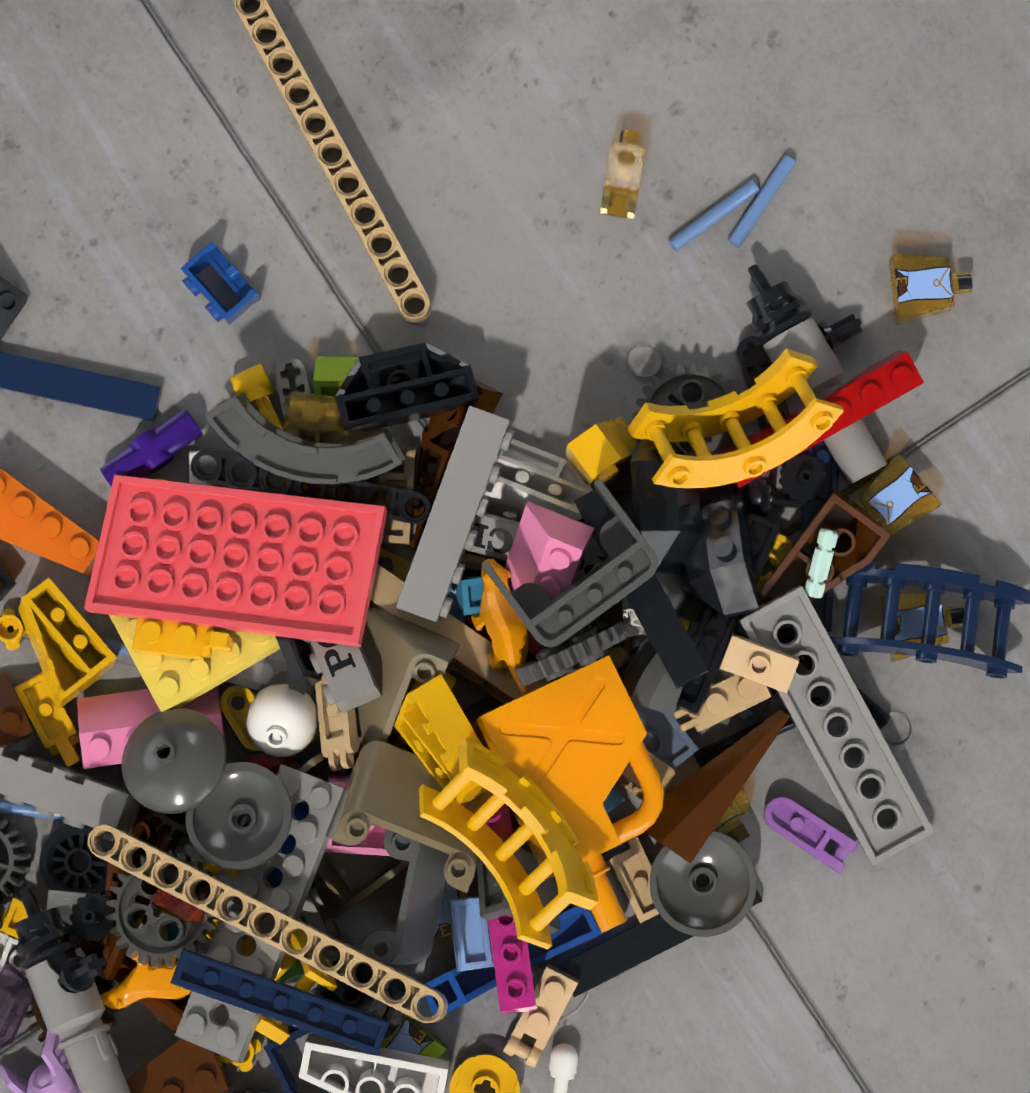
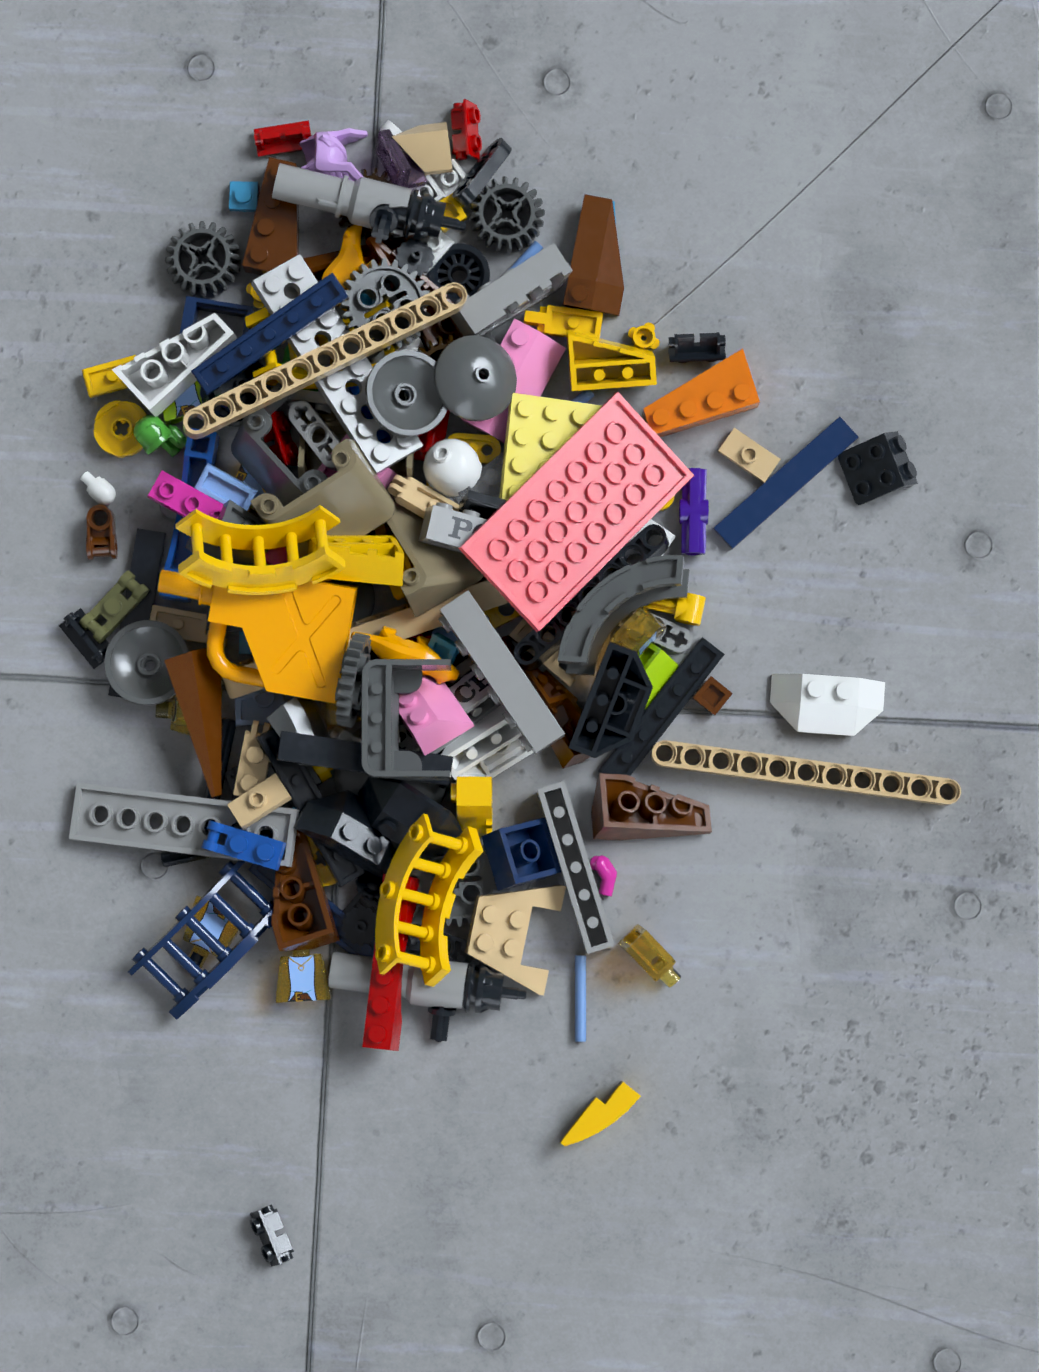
camera: 125 degrees right, 0 degrees up
(54, 438) = (749, 455): none -> tan plate
(177, 906) = (378, 311): clear red tile -> none
(178, 639) = (552, 437): yellow hinge -> none
(212, 256) = (759, 622): blue window -> none
(249, 185) = (826, 702): none -> white wedge
(322, 300) = (712, 695): none -> reddish brown plate
(349, 905) = (308, 430): none -> light grey beam
(366, 338) = (664, 708): none -> black tile
(384, 908) = (284, 447): none -> red hinge
(466, 1050) = (153, 434): none -> bright green piece
(490, 292) = (638, 811): none -> reddish brown wedge
(551, 998) = (147, 512): tan plate -> none
(572, 279) = (607, 873): none -> dark pink arm
(591, 308) = (575, 867): none -> light grey brick
(608, 1028) = (101, 535): none -> reddish brown piece
(618, 369) = (521, 854): none -> dark blue brick
(671, 960) = (114, 607): none -> olive plate
(706, 336) = (501, 929): none -> tan wing
(721, 966) = (83, 639): none -> black hinge
(761, 201) = (566, 1037): medium blue bar -> none
(808, 832) = (129, 757): medium lavender plate -> none
(812, 112) = (601, 1115): none -> yellow slope
(814, 645) = (245, 845): none -> blue plate
(821, 563) = (294, 890): light aqua axle -> none
(924, 286) = (428, 1102): torso -> none

